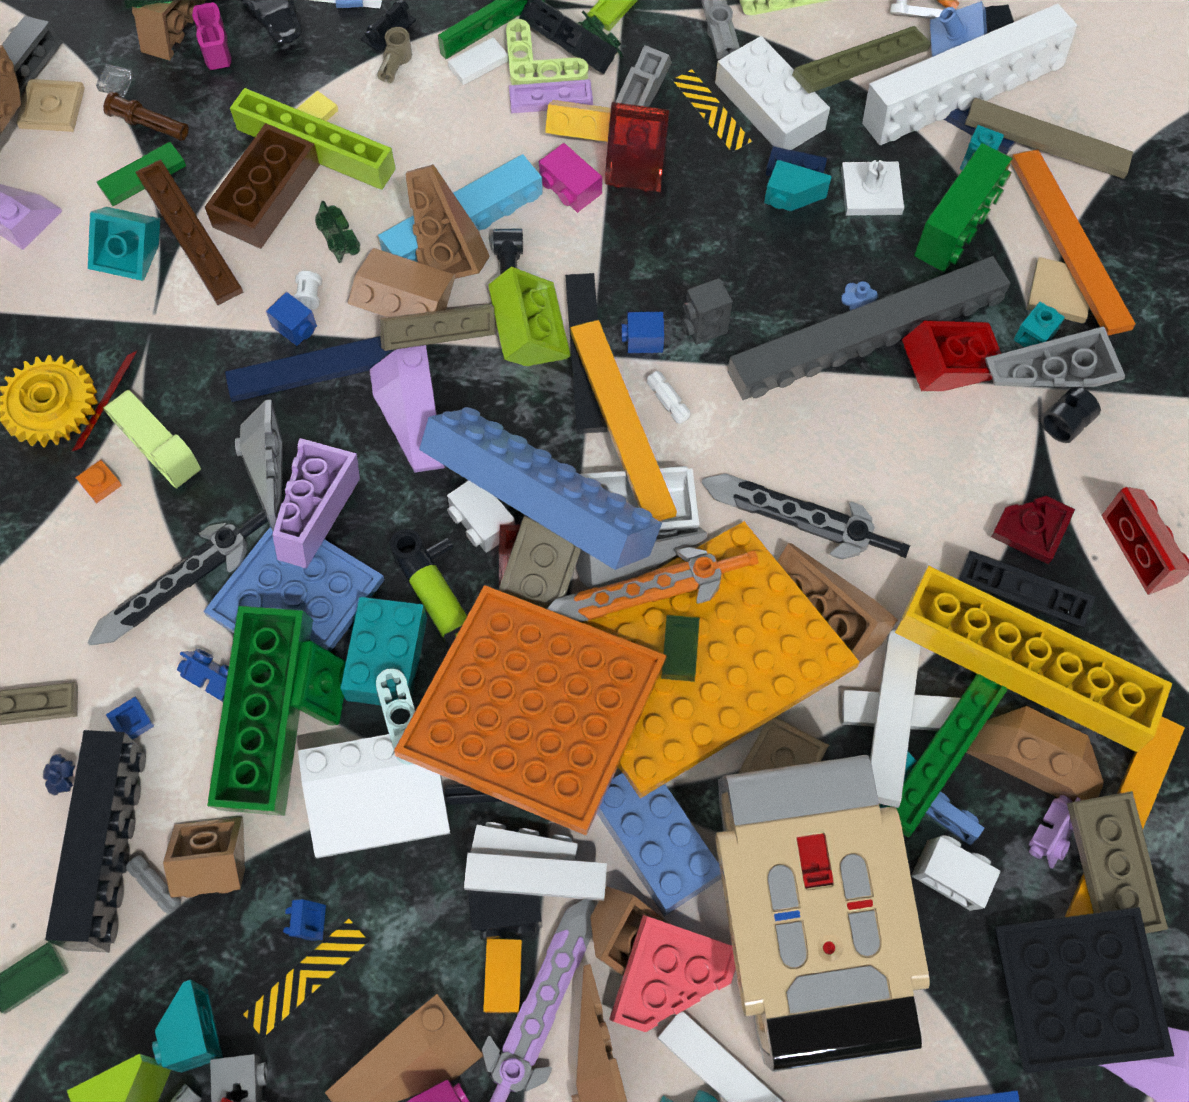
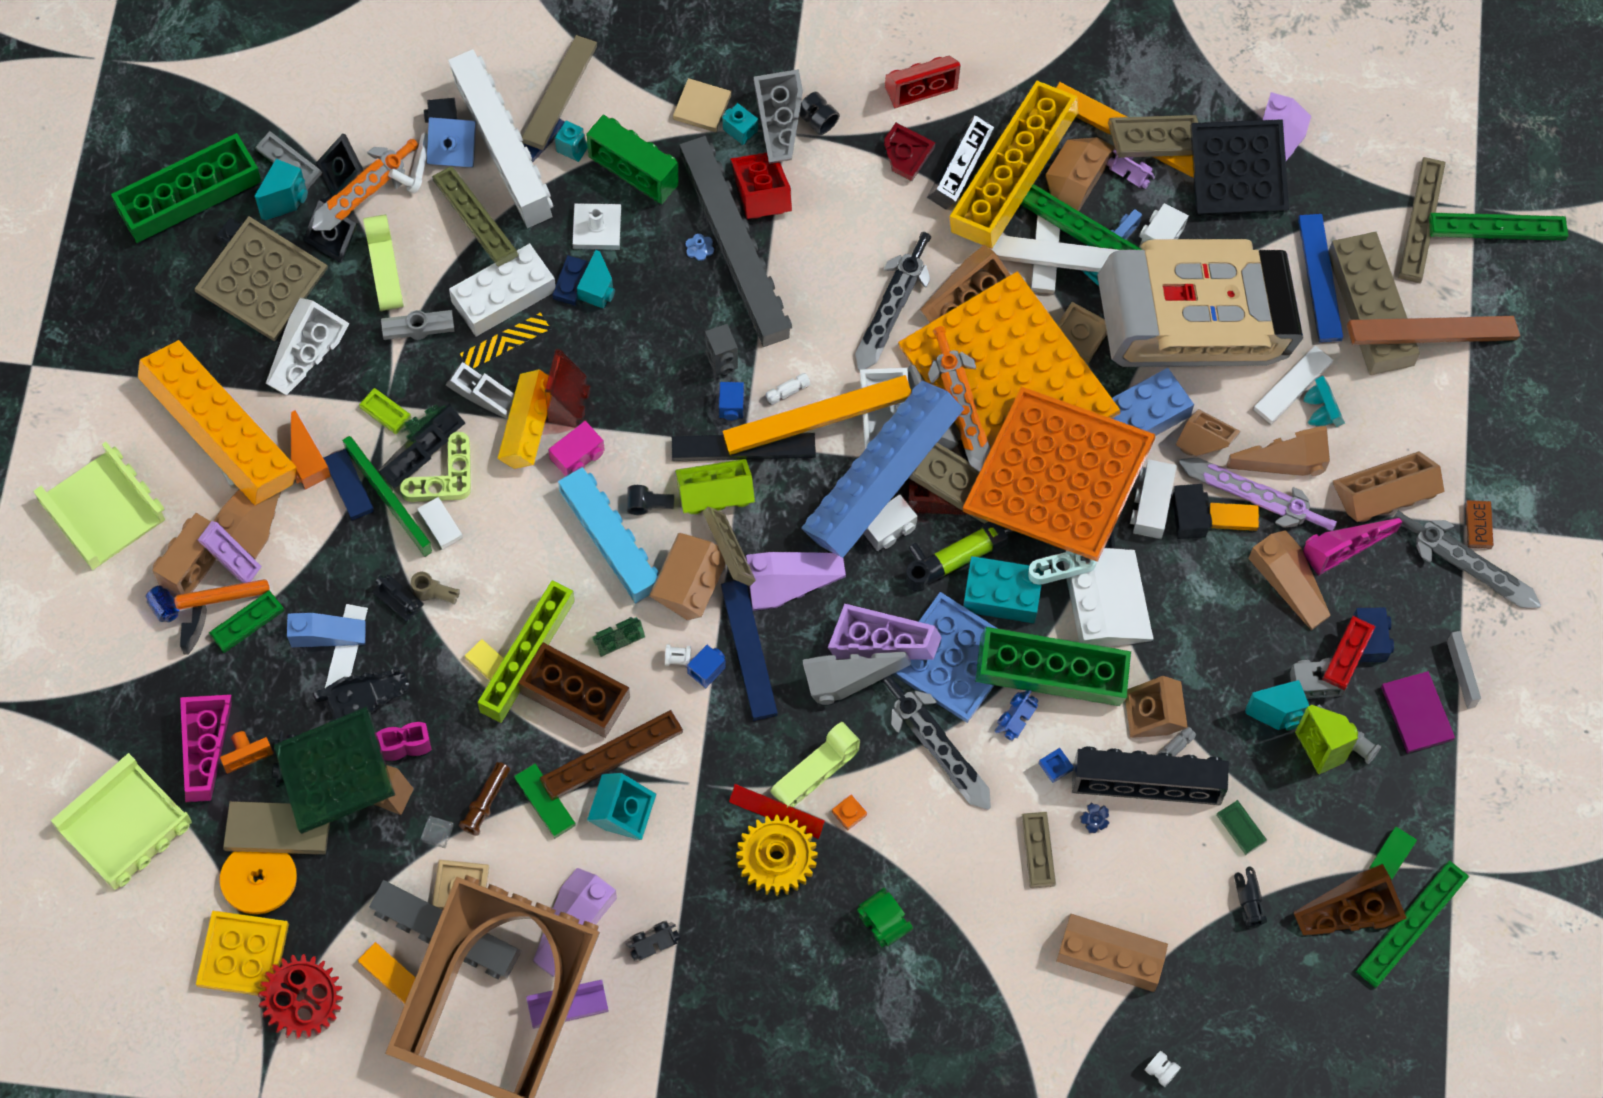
camera: 90 degrees left, 0 degrees up
(305, 978) = (1236, 645): sticker -> none
(306, 920) = (1200, 639): blue tile -> none
(319, 684) = (1031, 628): green tile -> none
(442, 226) = (647, 535): medium nougat wedge -> none
(535, 876) = (1173, 484): white tile -> none
(538, 95) = (483, 465): lavender tile -> none
(669, 973) = (1233, 410): coral plate -> none
(680, 648) = (1010, 380): clear green tile -> none
(1072, 243) = (660, 90): orange tile -> none

